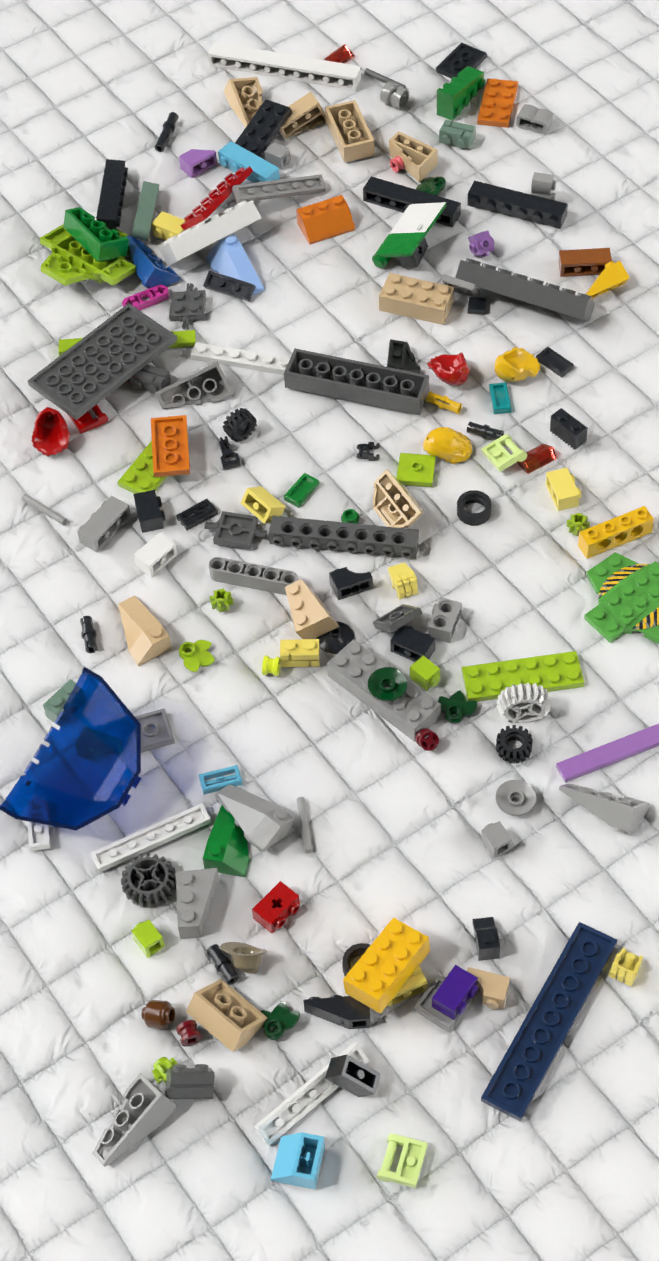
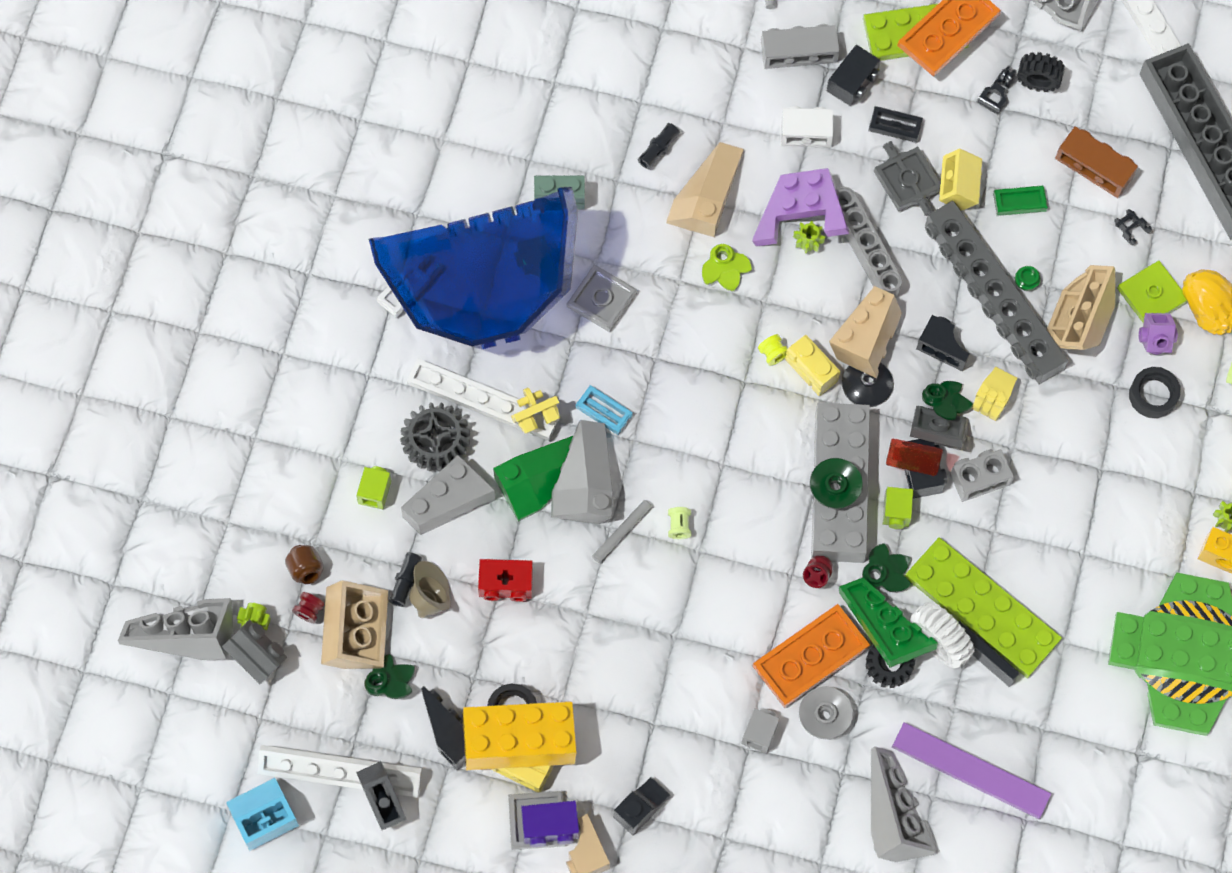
camera: 45 degrees right, 15 degrees up
(187, 818) = (525, 417): none -> light yellow hips
(196, 583) = (799, 197): none -> wing
(316, 439) = (1096, 161): none -> dark orange brick
(329, 789) = (679, 523): none -> yellowish green bush
(381, 605) = (946, 399): none -> dark green plate
(406, 638) = (914, 457): none -> clear red slope
(443, 480) = (1158, 333): none -> medium lavender brick
(473, 781) = (811, 655): none -> orange plate
(491, 726) = (885, 625): none -> green wing
(564, 692) = (991, 659): none -> black tile

